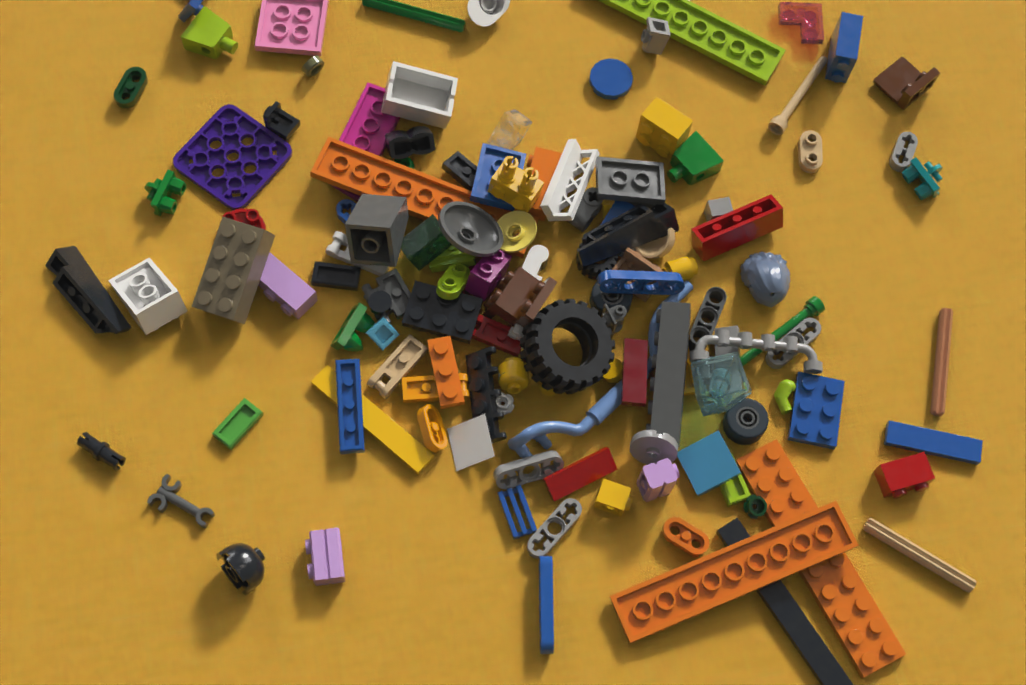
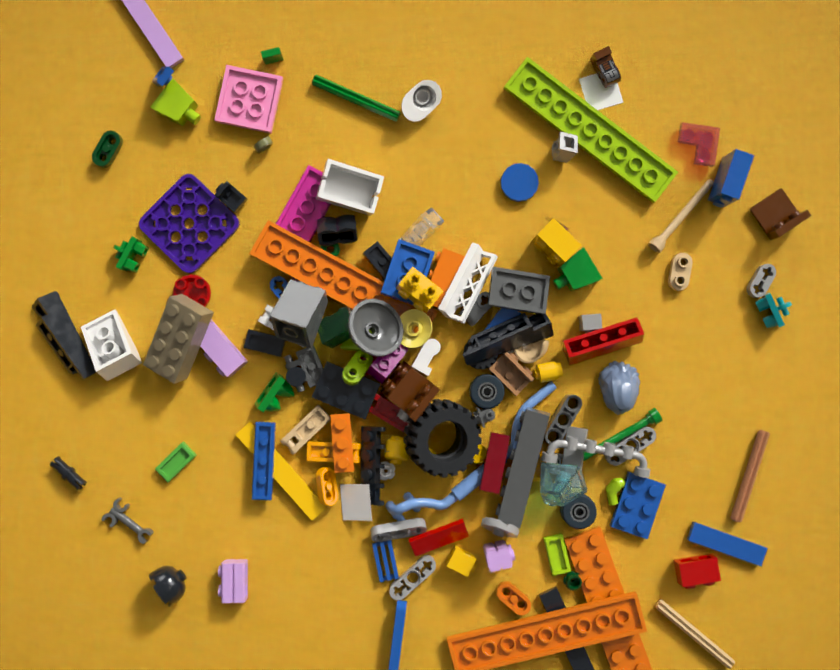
camera: 10 degrees right, 20 degrees up
(382, 333) = (296, 400): medium azure tile -> none
(614, 282) = (519, 387): blue beam -> none
(708, 463) = (542, 542): dark azure tile -> none

